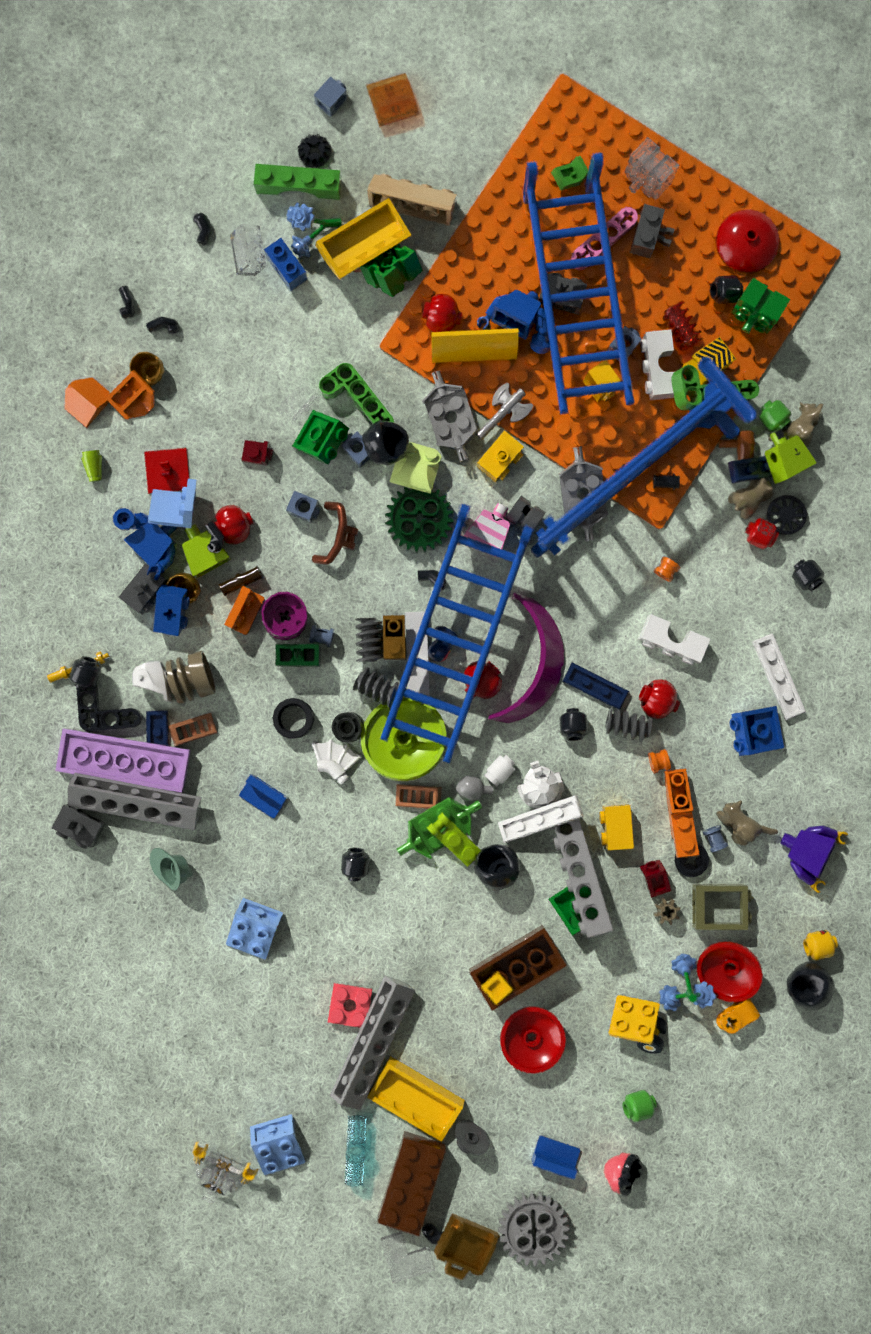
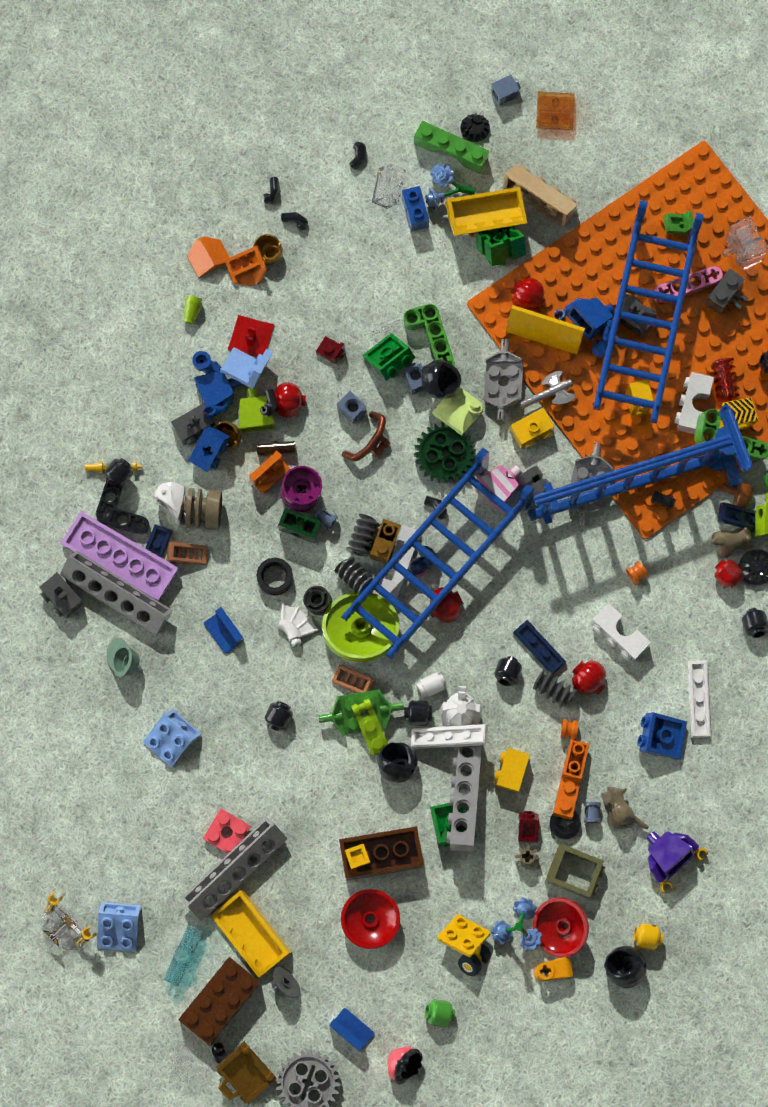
camera: 25 degrees right, 10 degrees down
(471, 788) = (401, 690): light grey piece -> none
(498, 805) = (418, 713): none -> black head
(549, 666) = (502, 620): magenta windscreen -> none
(632, 336) = (679, 370): sand blue brick -> none

